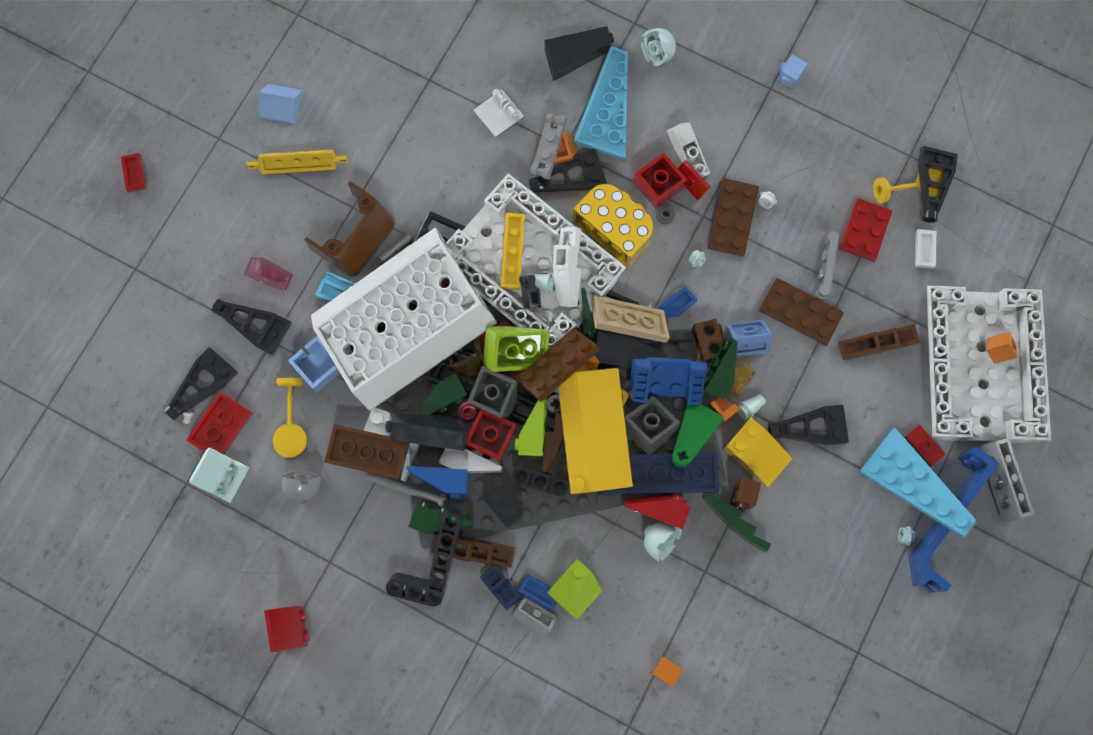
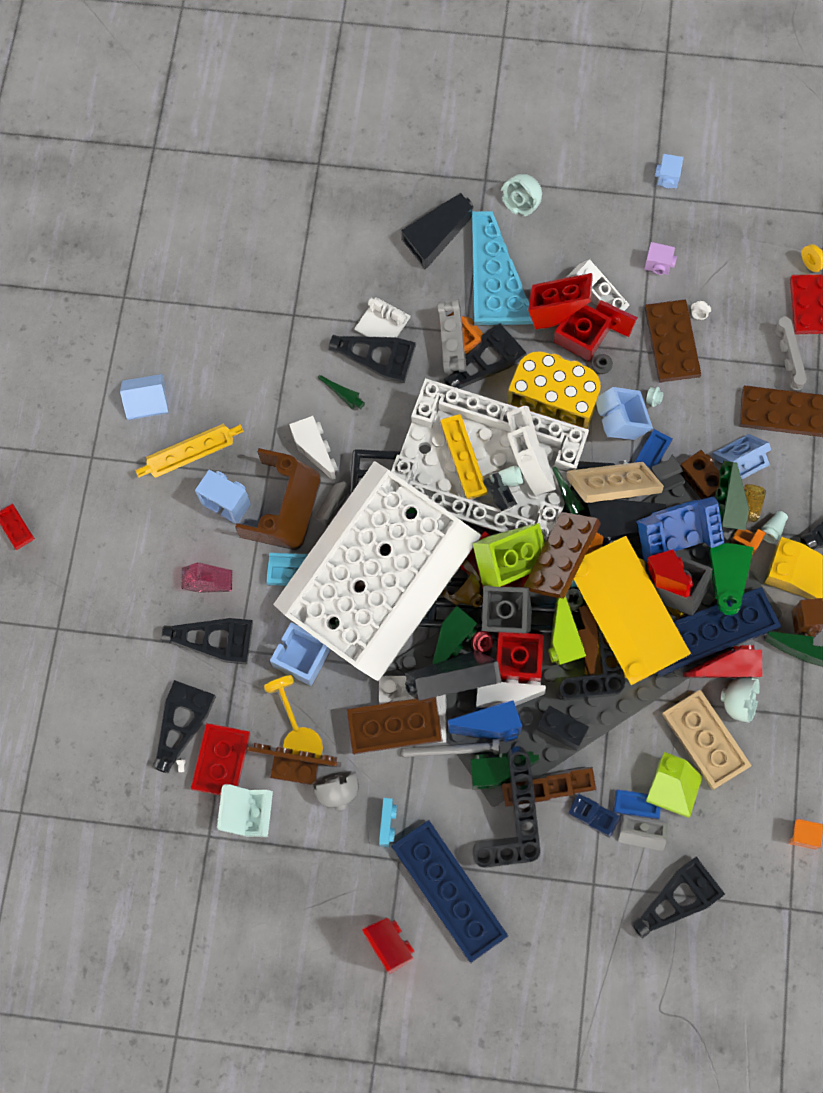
camera: 15 degrees left, 5 degrees down
(274, 453) = (293, 767): none -> reddish brown bracket
(307, 210) = (219, 492): none -> light blue piece
(327, 535) = (389, 812): none -> medium azure plate
(357, 603) = (449, 891): none -> dark blue plate
(397, 189) = (310, 444): none -> white slope
(446, 166) = (349, 396): none -> dark green piece
(498, 149) = (398, 362): none -> black plate
(563, 676) = (700, 883): none -> black plate
(618, 561) = (706, 740): none -> tan plate
(640, 413) = (668, 573): none -> red slope
(648, 147) = (559, 299): none -> red slope
(663, 264) = (623, 413): none -> light blue piece
(751, 143) = (660, 258): none -> lavender brick

